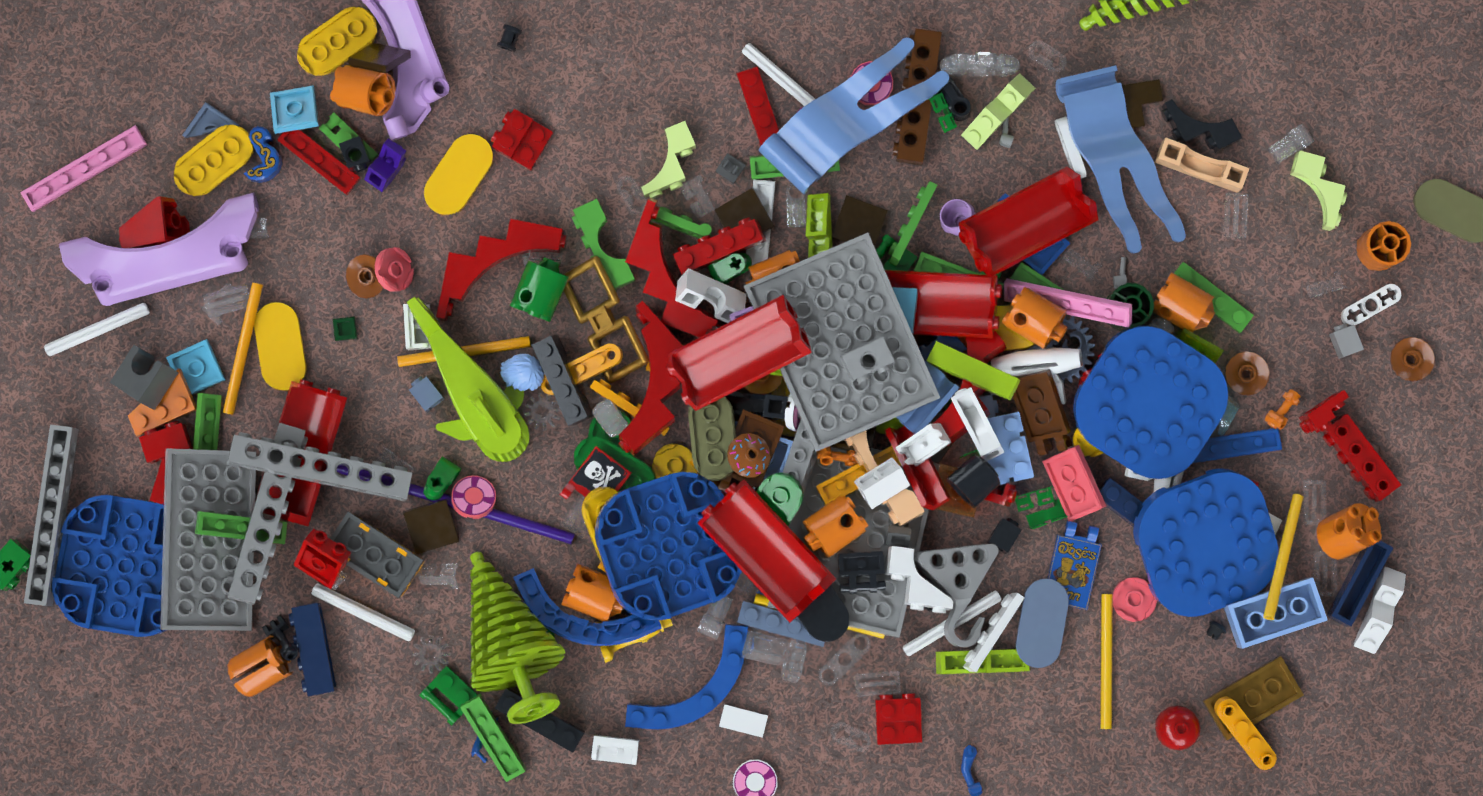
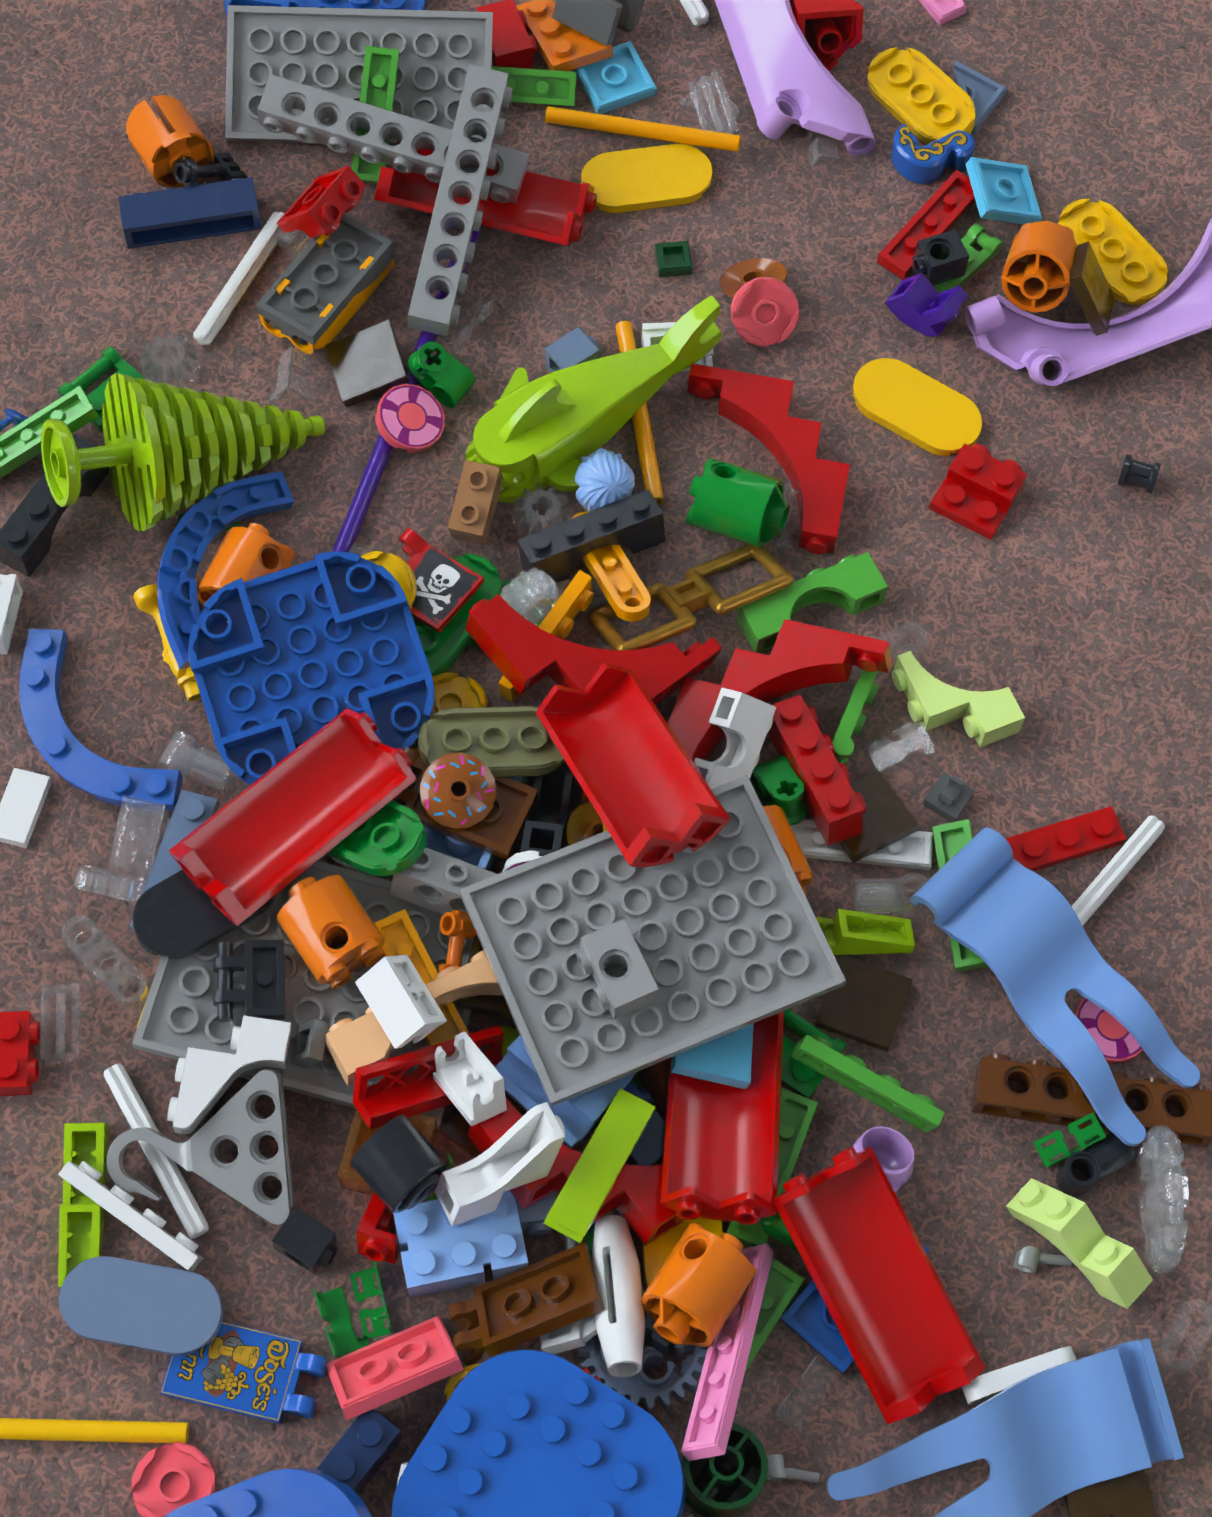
camera: 90 degrees right, 20 degrees down
(539, 453) = (475, 502): none -> medium nougat brick

